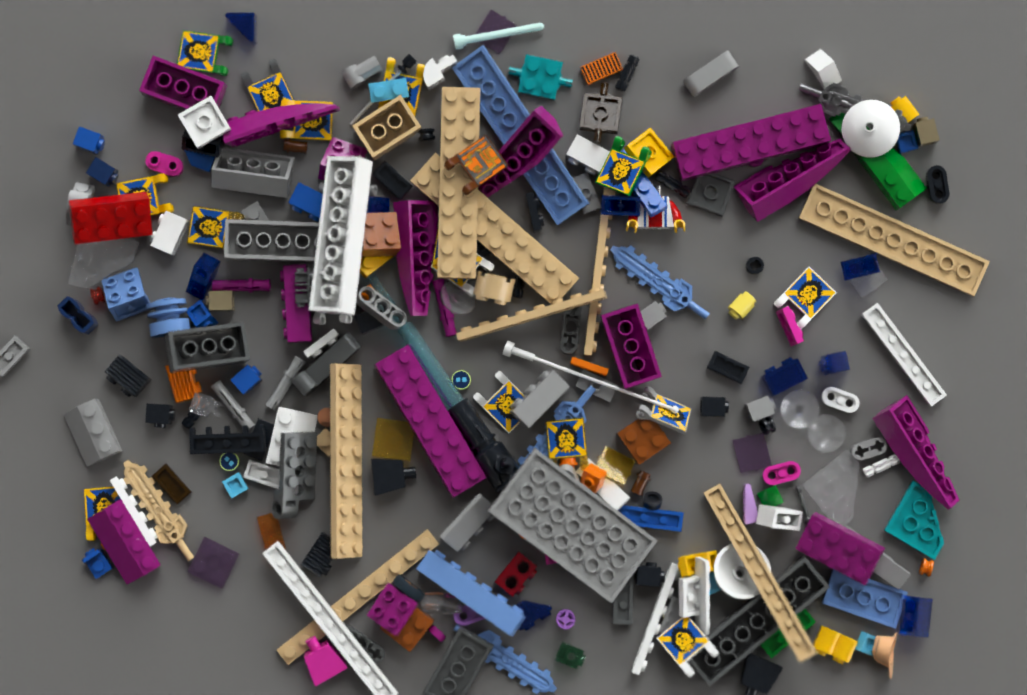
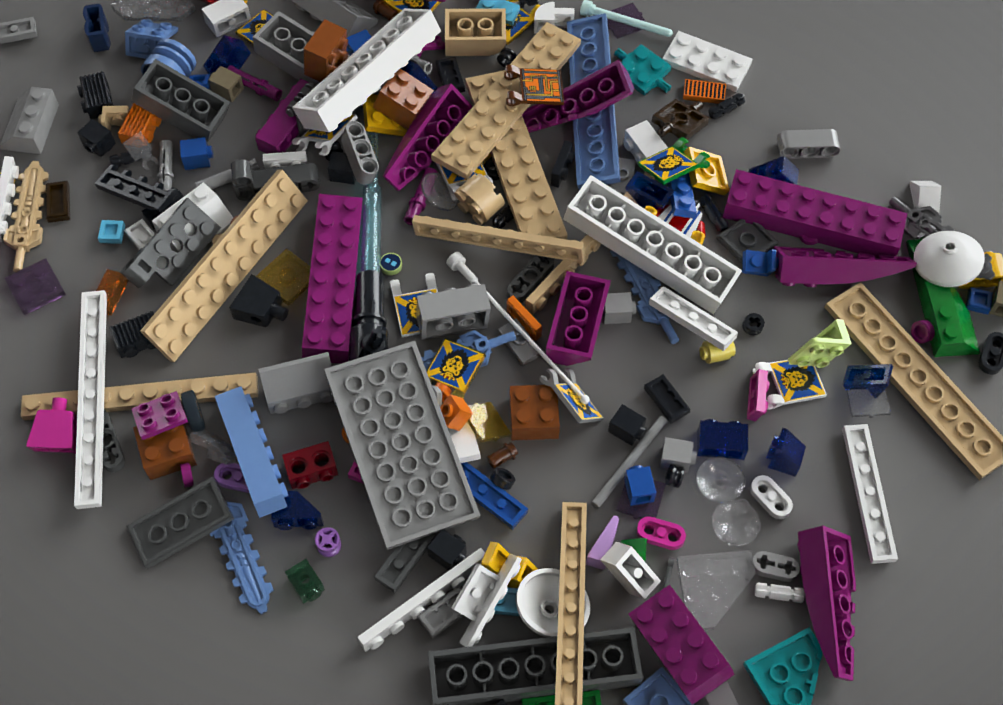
camera: 30 degrees right, 25 degrees down
(97, 295) = (126, 24): clear red bush -> none
(159, 384) = (113, 116): none -> tan bracket
(229, 461) = (124, 211): dark blue tile -> none
(298, 242) = (325, 50): none -> dark orange brick
(586, 35) = (707, 61): none -> white plate
(649, 253) = (652, 244): none -> white brick
(684, 641) = (438, 637): flag -> none
(701, 123) = (778, 169): none -> clear blue slope
(713, 296) = (693, 318): none -> white plate
(729, 431) = (629, 462): none -> light grey piece
(732, 211) = (759, 262): none -> blue bracket
(748, 448) = (639, 485): none -> blue brick
(821, 258) = (823, 347): none -> yellowish green bracket
(879, 198) = (922, 331): none -> magenta tile

